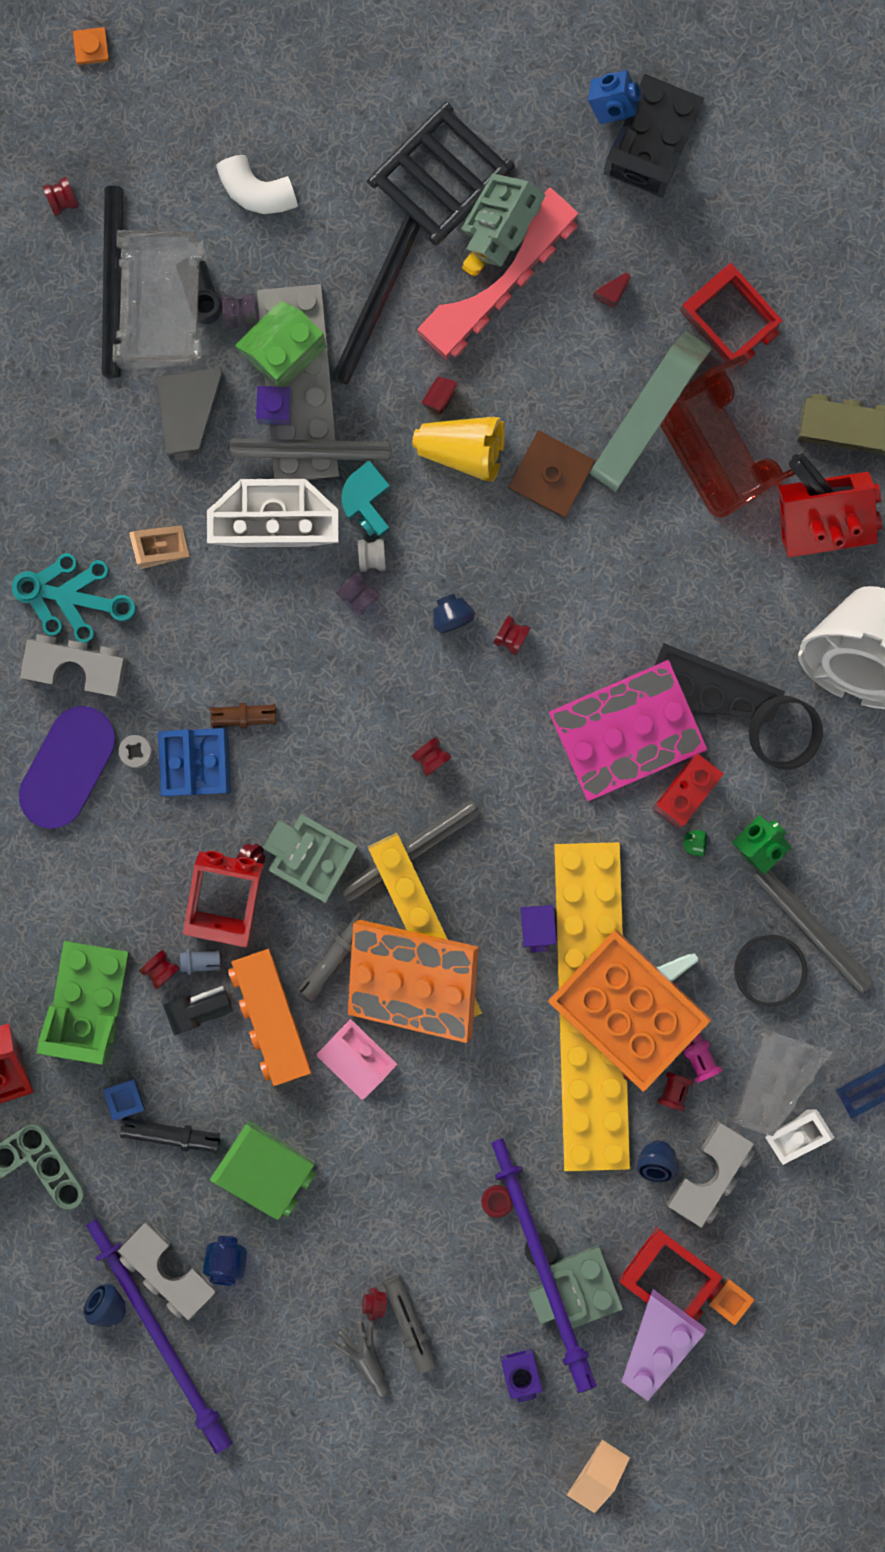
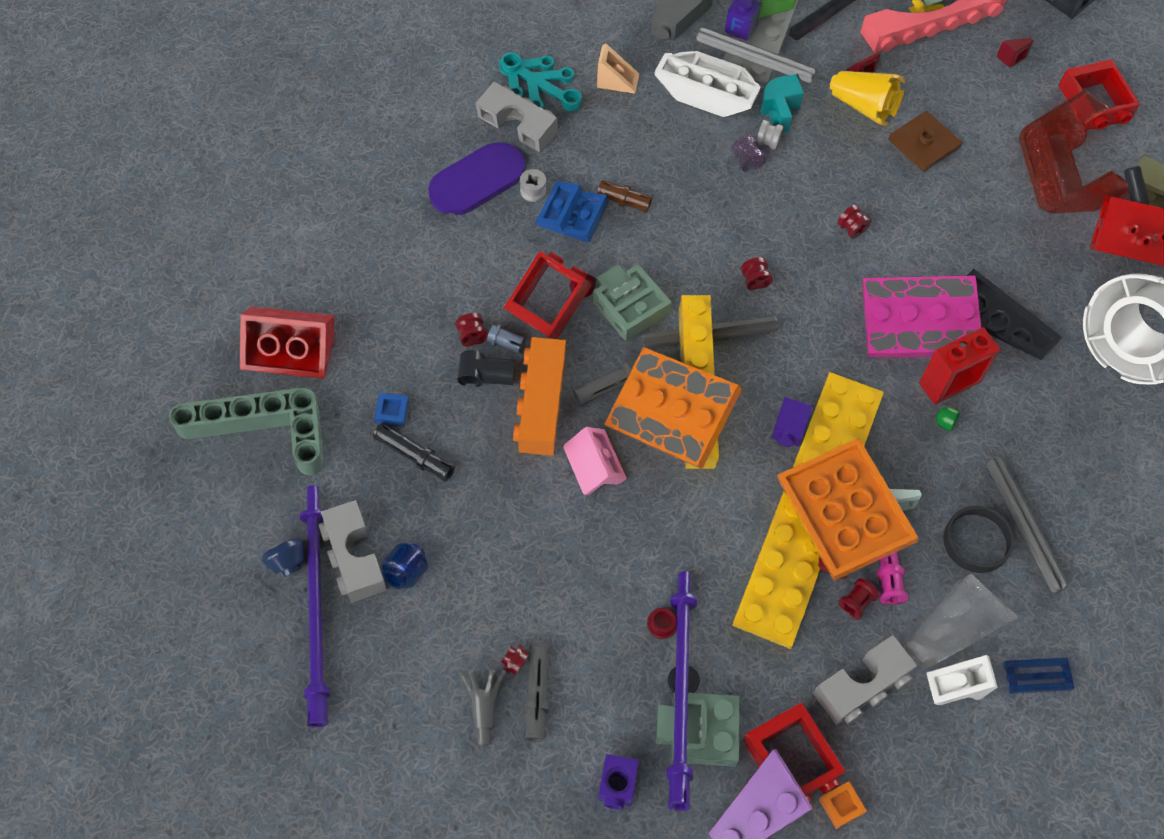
camera: 25 degrees right, 25 degrees down
(85, 1004) = (400, 333): bright green bracket -> none
(264, 1171) = (474, 502): bright green slope -> none
(451, 614) = (814, 191): dark blue cone -> none
(650, 410) = (1016, 117): sand green beam -> none
(657, 1162) = (820, 650): dark blue cone -> none
(762, 843) = (1006, 436): green brick -> none
(764, 710) = (1078, 357): black tyre -> none

